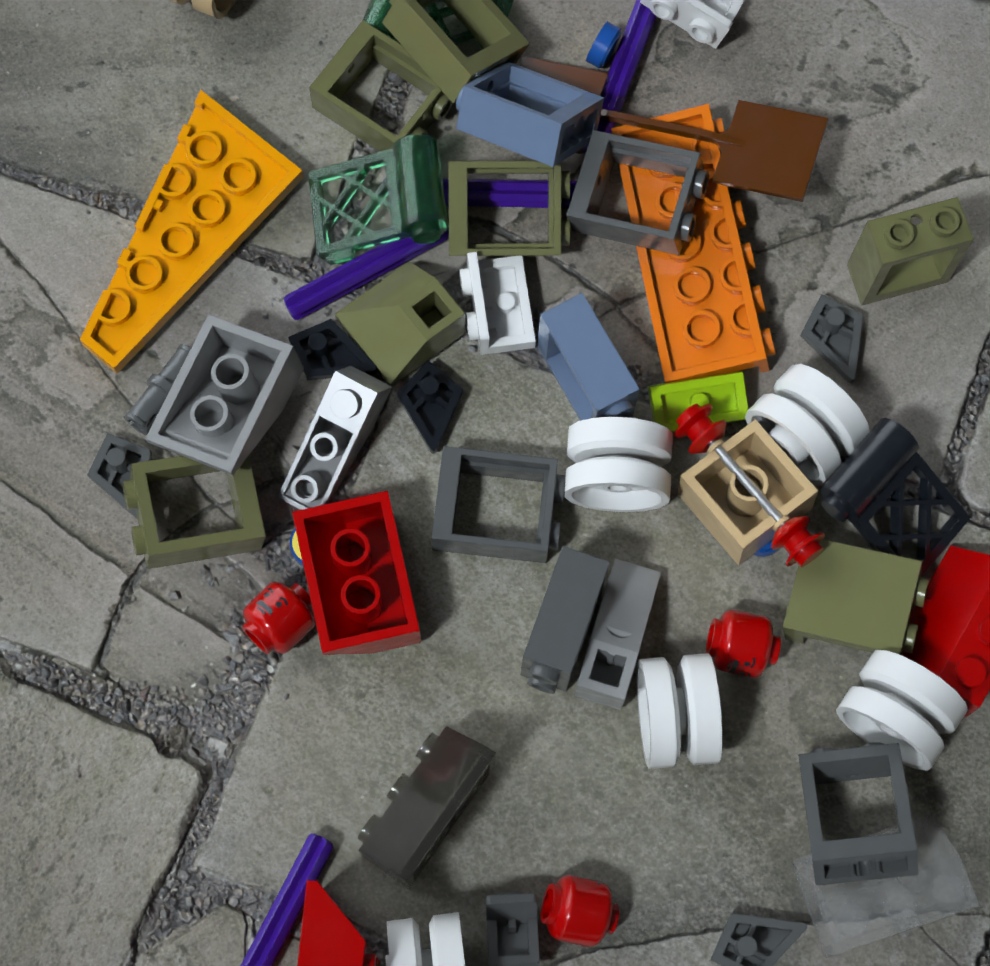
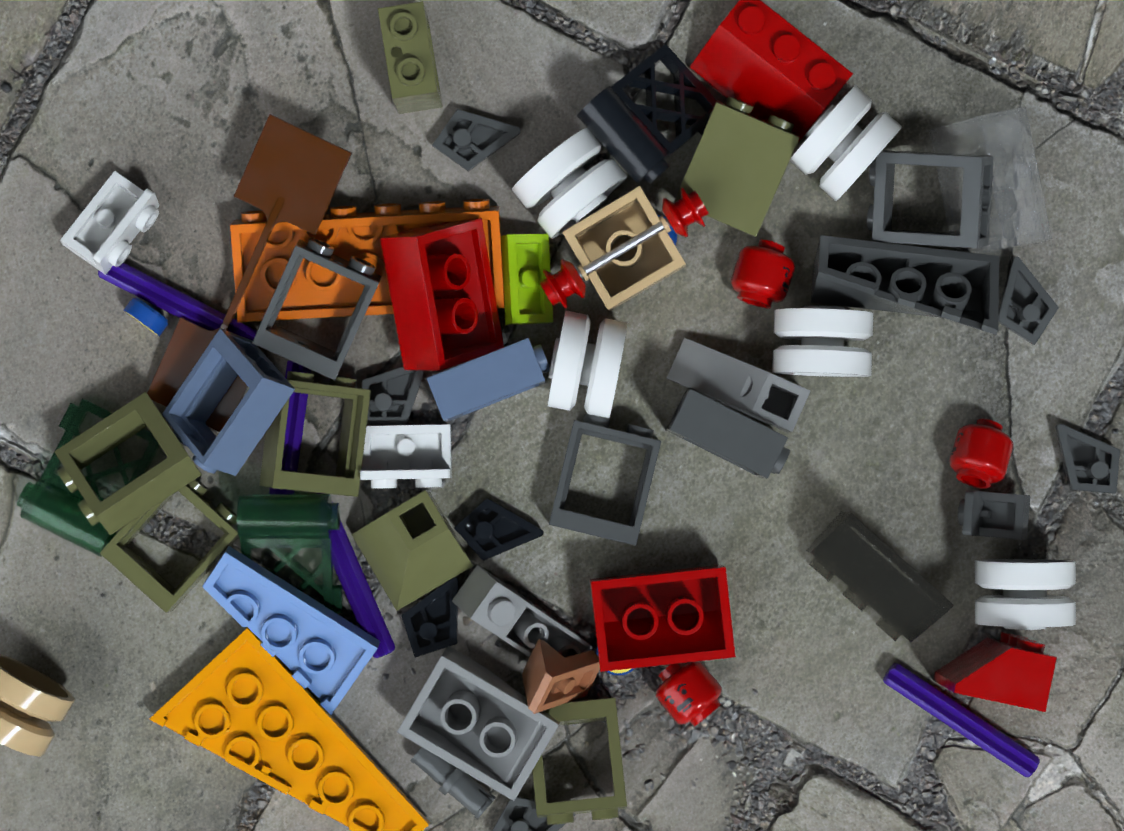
camera: 80 degrees left, 15 degrees up
(278, 474) = (557, 680): none -> nougat slope
(298, 228) = (305, 635): none -> medium blue wing
(554, 281) = (392, 396): none -> dark grey piece
(673, 310) = (442, 294): none -> red slope
(762, 798) = (908, 280): none -> dark grey wedge

